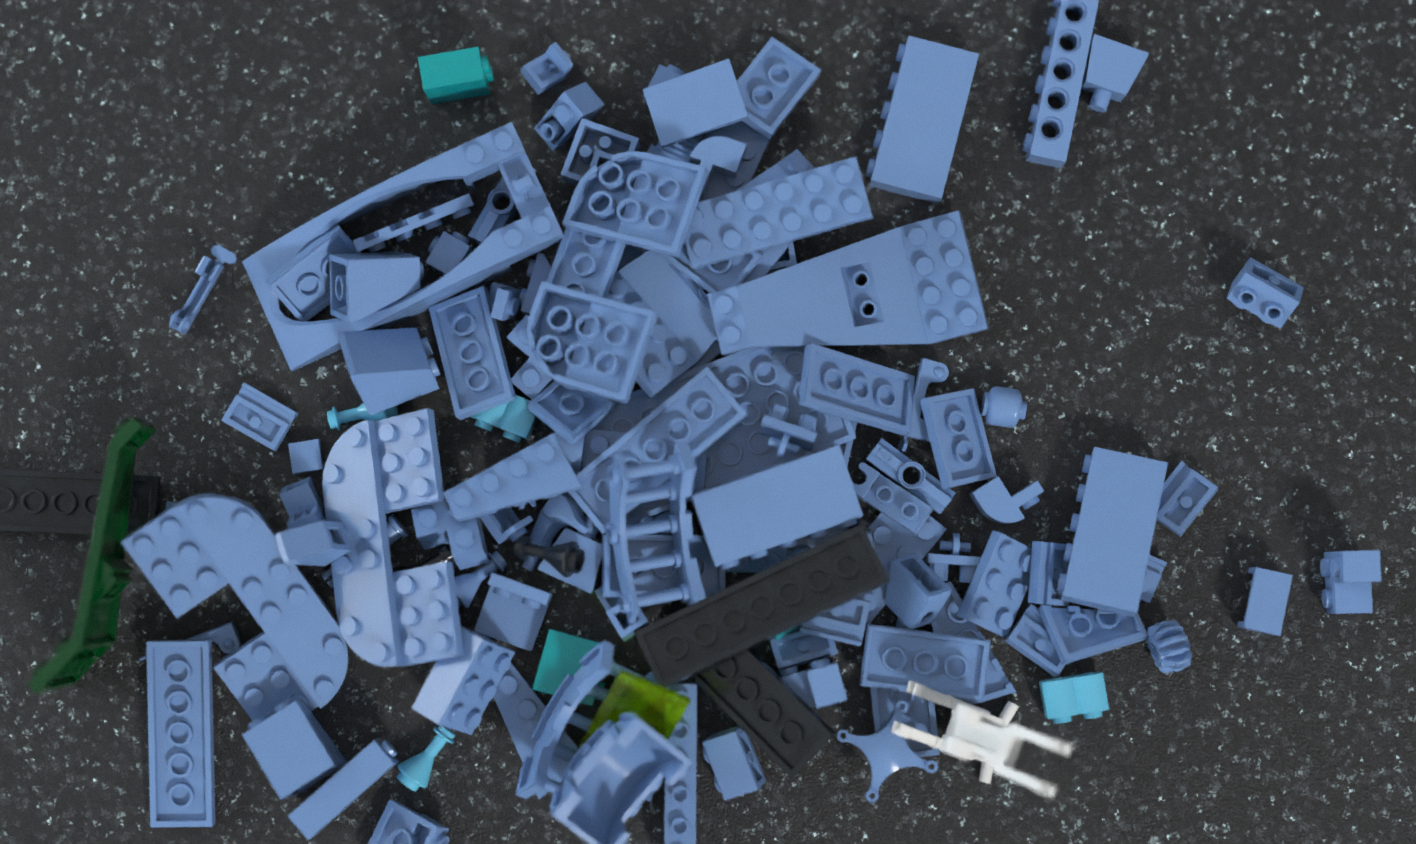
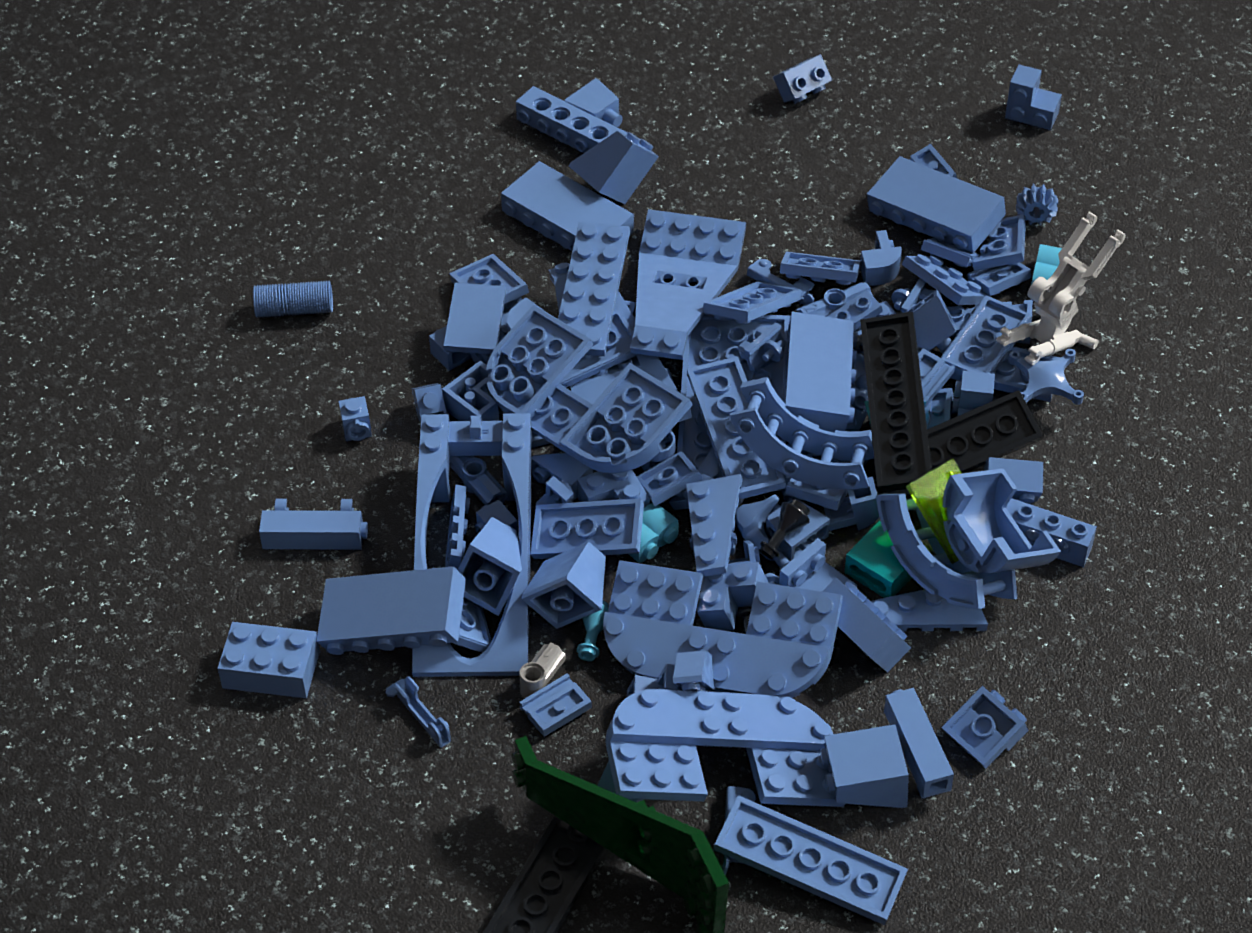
camera: 65 degrees left, 35 degrees down
(189, 119) = (269, 659): none -> medium blue brick
(272, 213) = (391, 610): none -> medium blue brick
(294, 384) = (541, 669): none -> light grey piece
(306, 456) = (608, 686): medium blue tile -> none
(363, 77) = (312, 528): none -> medium blue brick
(417, 769) = (930, 699): medium azure piece -> none
(455, 75) = (353, 461): teal piece -> none
(521, 44) = (355, 418): none -> medium blue brick
(547, 69) = (385, 409): medium blue bracket -> none
(994, 146) = (616, 165): none -> medium blue slope
(1003, 407) = (809, 238): medium blue head -> none
(1266, 601) = (1029, 145): medium blue panel -> none

